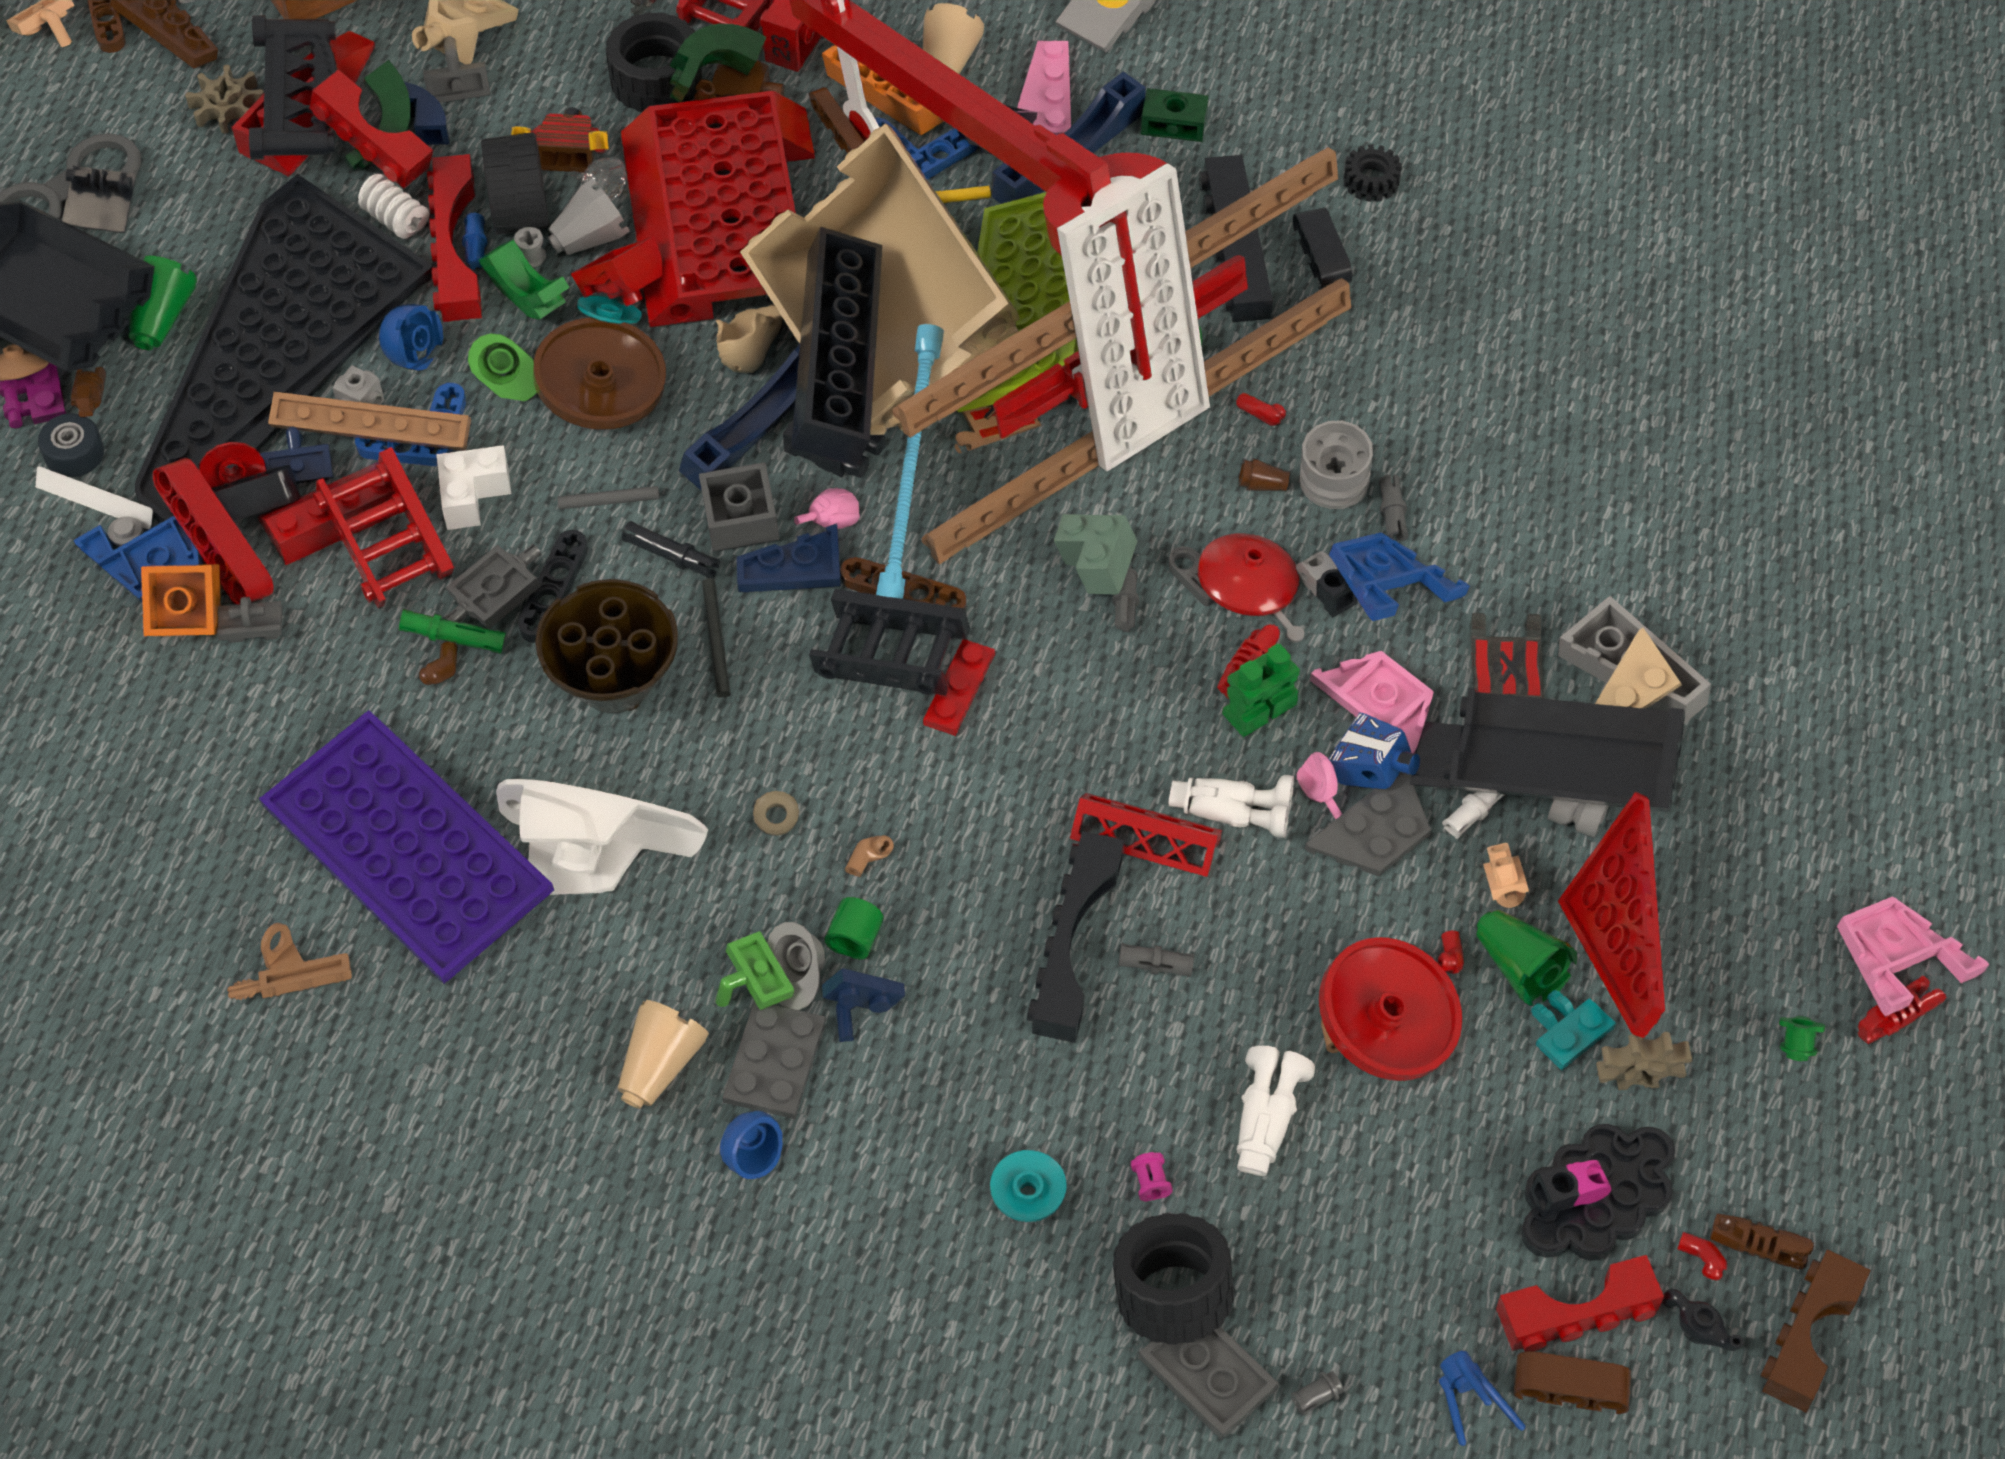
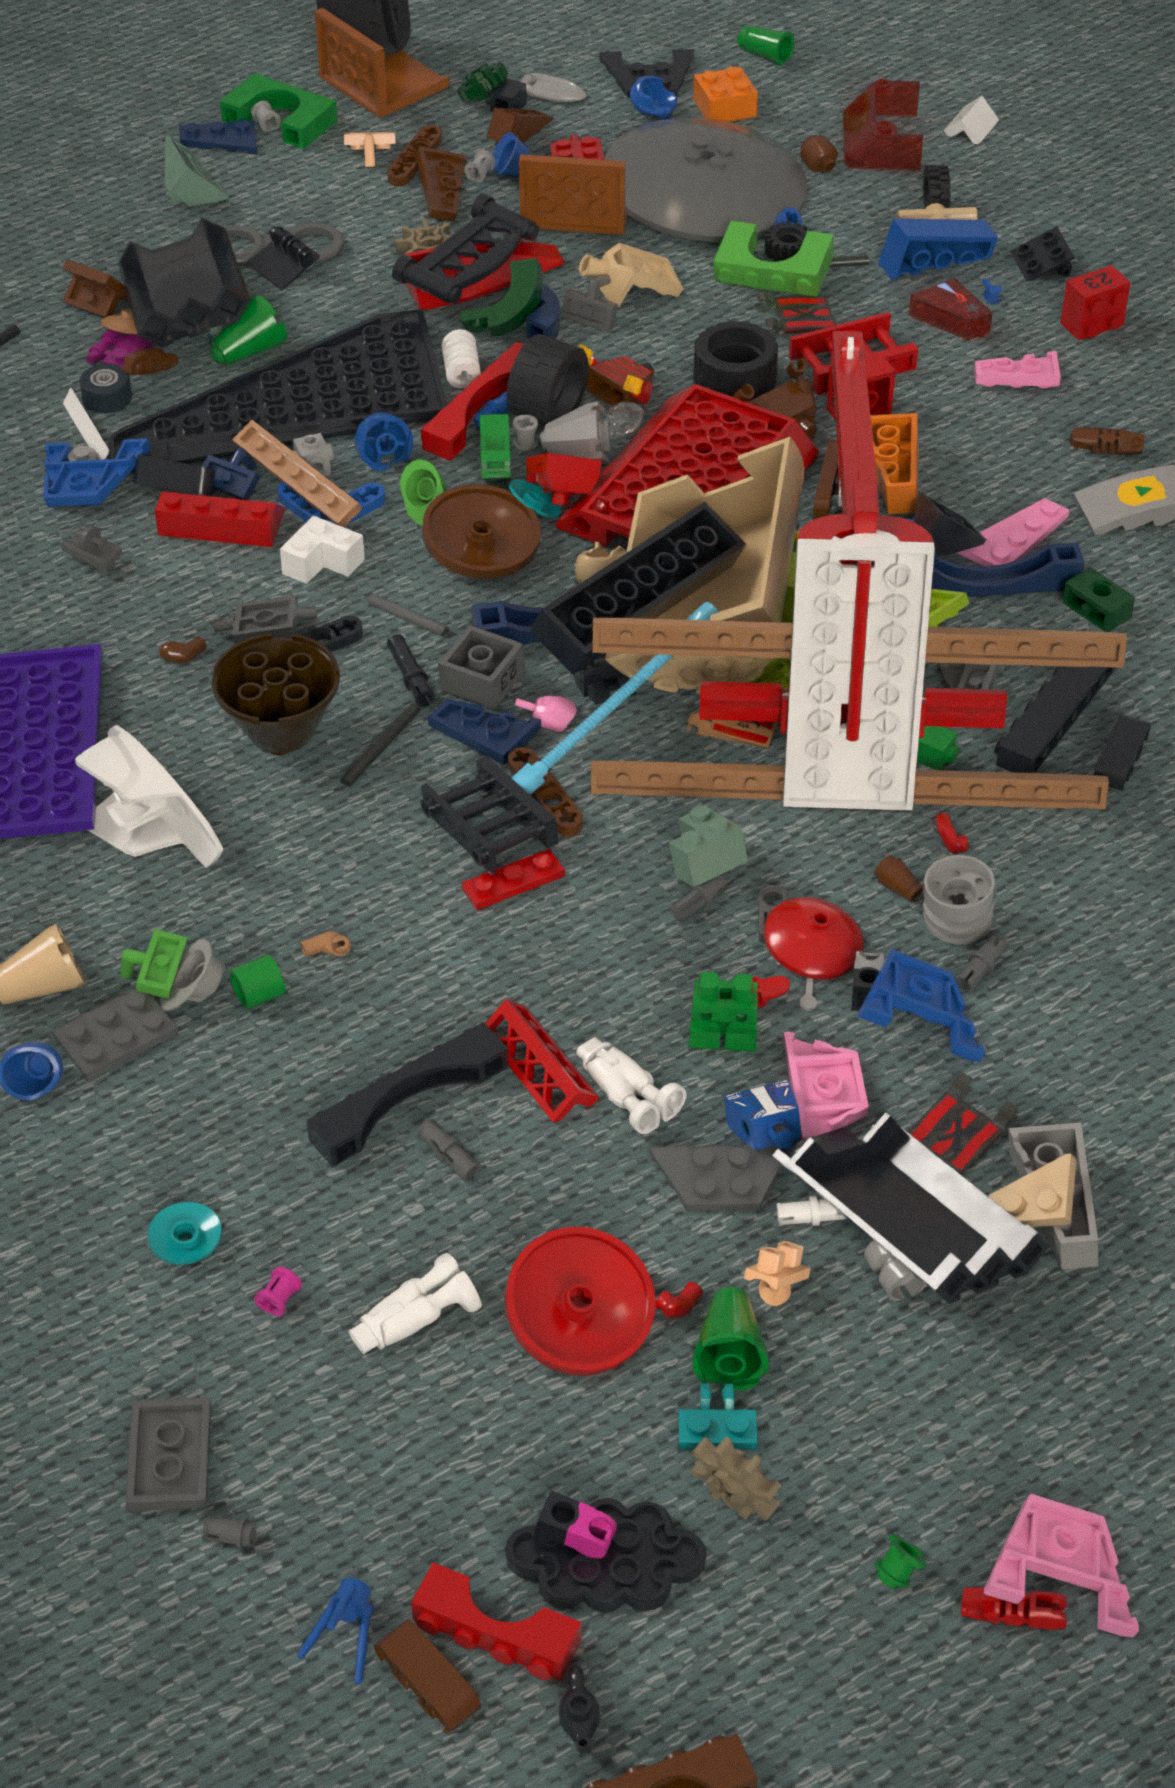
camera: 40 degrees right, 10 degrees down
(180, 599) = (58, 506): orange brick -> none
(212, 530) = (122, 479): red beam -> none
(246, 460) = (169, 440): red dish -> none
(398, 155) = (492, 325): red arch -> none
(417, 531) = (251, 555): red fence -> none
(451, 631) = (200, 622): green pin -> none
(713, 44) = (773, 363): dark green arch -> none
(776, 799) = (291, 867): dark tan piece -> none
(859, 990) = (208, 1022): dark blue plate -> none
(951, 34) = (965, 462): tan cone -> none
(1179, 1313) = (202, 1391): black tyre -> none
(1319, 781) = (706, 1112): bright pink piece -> none
(1617, 916) = (818, 1348): red wing -> none
(1707, 1251) = (645, 1668): red arm -> none
(1777, 1245) = (697, 1690): reddish brown hinge -> none

